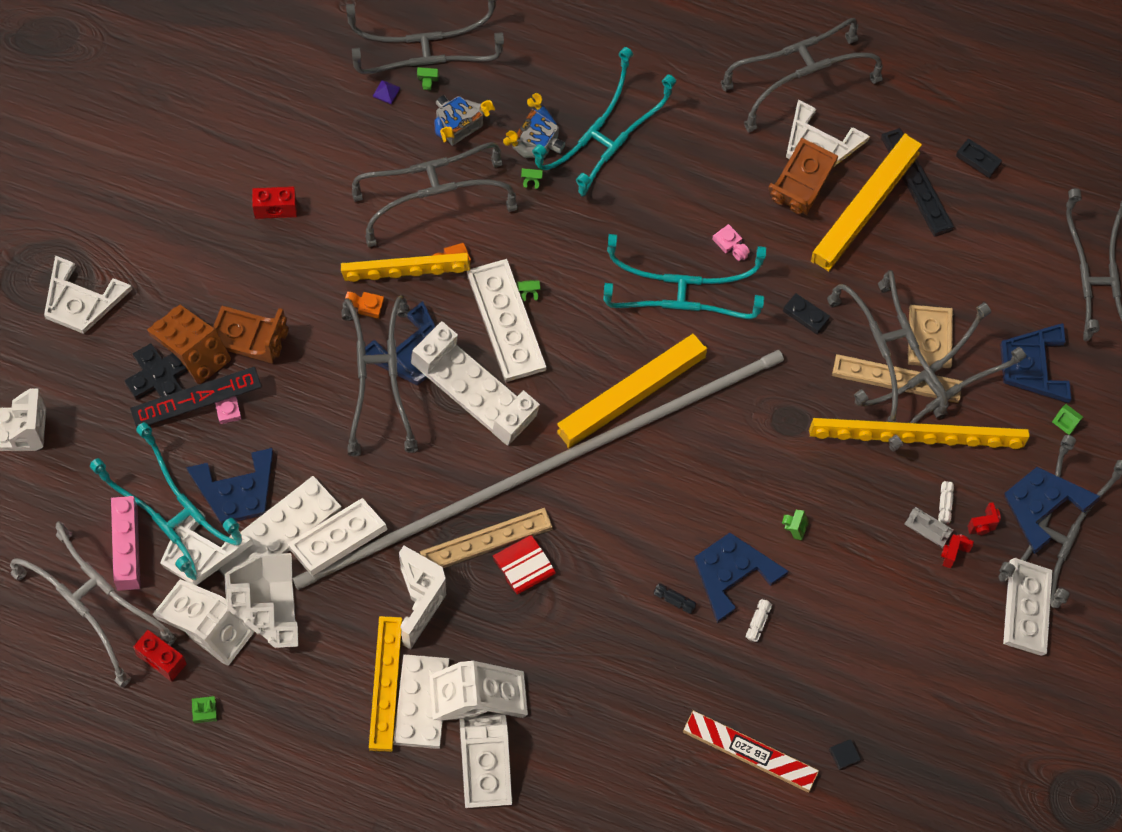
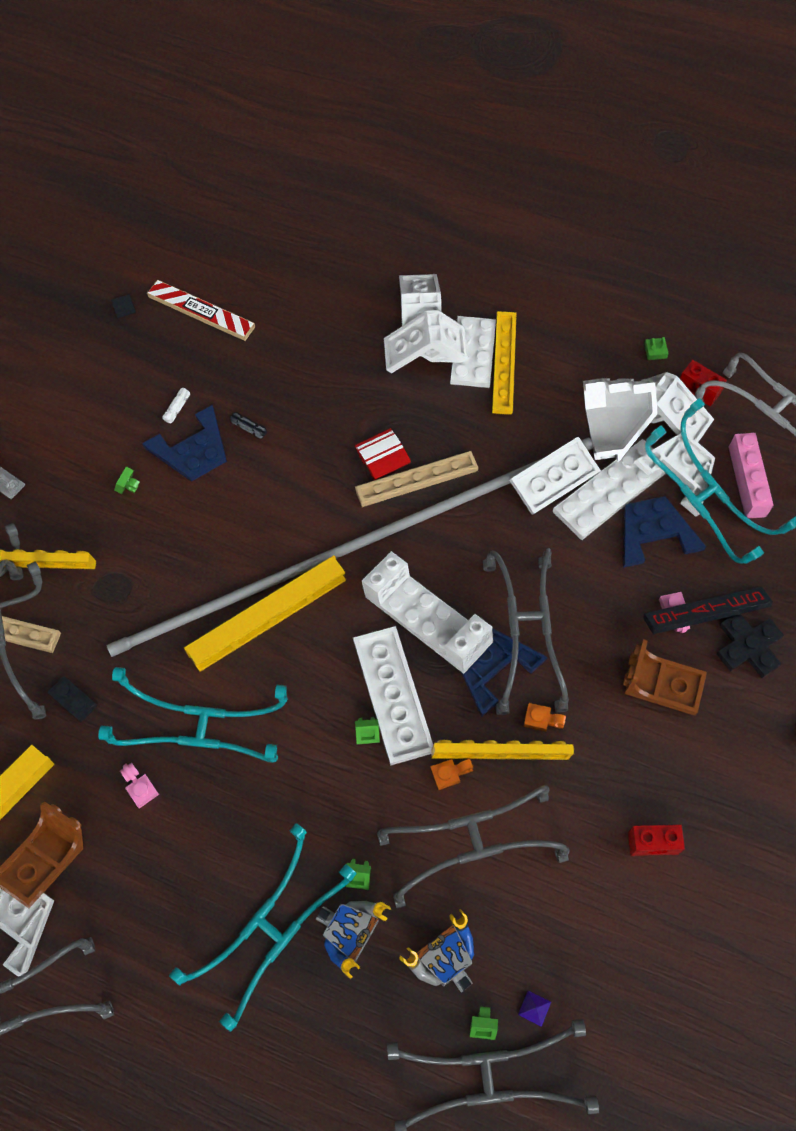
camera: 175 degrees left, 0 degrees up
(191, 342) = (729, 670): dark orange bracket -> none
(426, 588) = (473, 424): white bracket -> none

